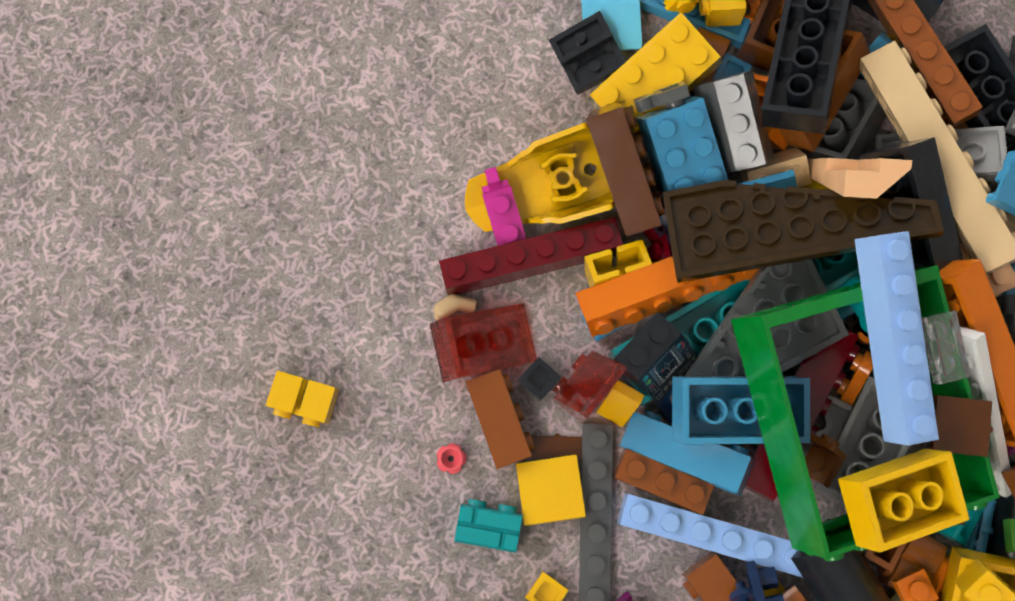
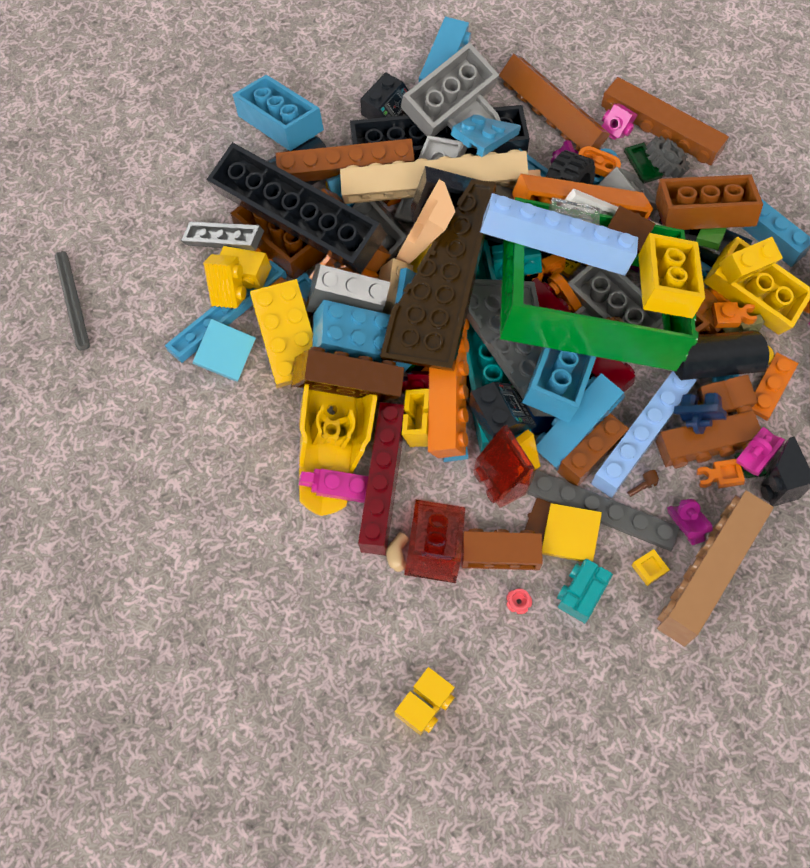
camera: 70 degrees left, 15 degrees down
(539, 378) = (482, 506): black brick -> none
(588, 52) = (240, 375): black slope -> none
(656, 561) = (650, 478): none -> reddish brown hand
(669, 96) = (309, 324): dark grey plate -> none

